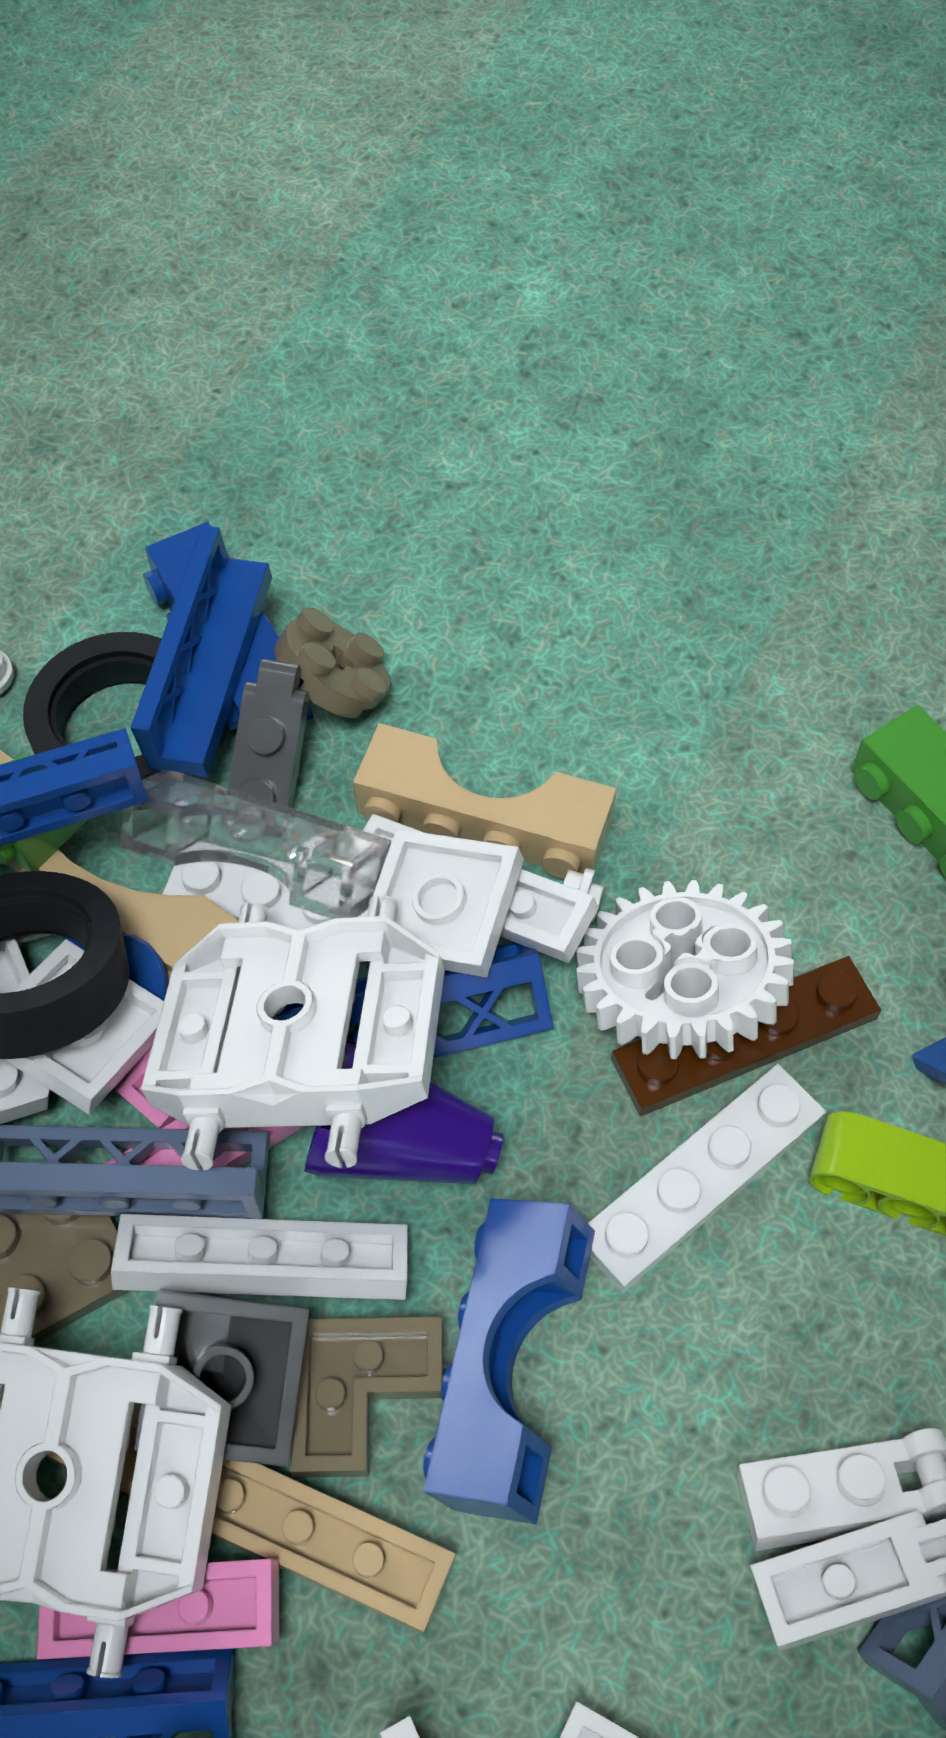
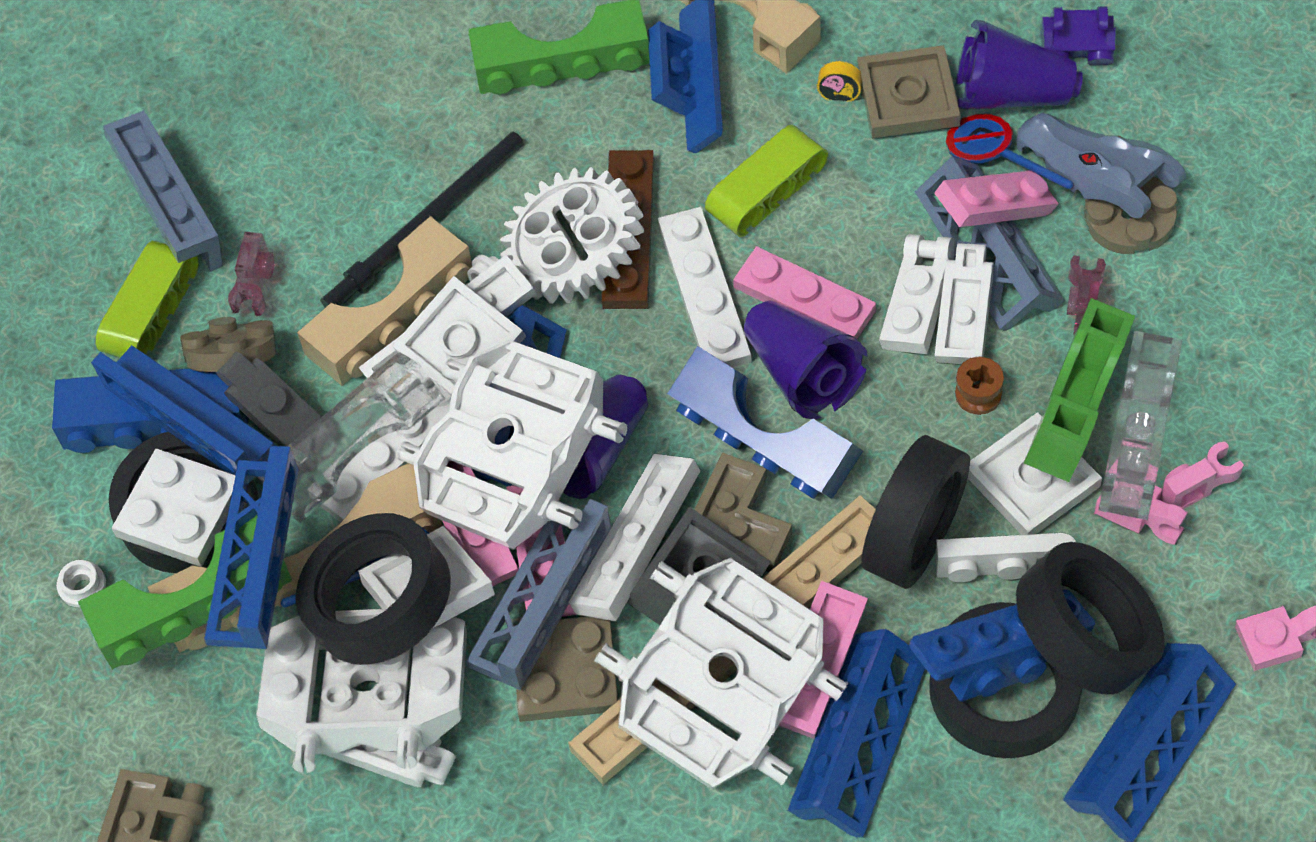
camera: 60 degrees left, 0 degrees up
(80, 698) = (176, 507): none -> white plate
(366, 563) = (145, 301): none -> lime beam
(425, 1661) = (915, 511): none -> black tyre
(458, 642) = (251, 268): none -> clear pink plate
(509, 509) = (163, 189): none -> sand blue fence
(512, 760) = (362, 274): none -> black bar
(643, 1365) = (805, 357): none -> dark purple cone
(719, 1676) = (985, 395): none -> dark orange wheel
(763, 1323) = (779, 280): none -> bright pink plate

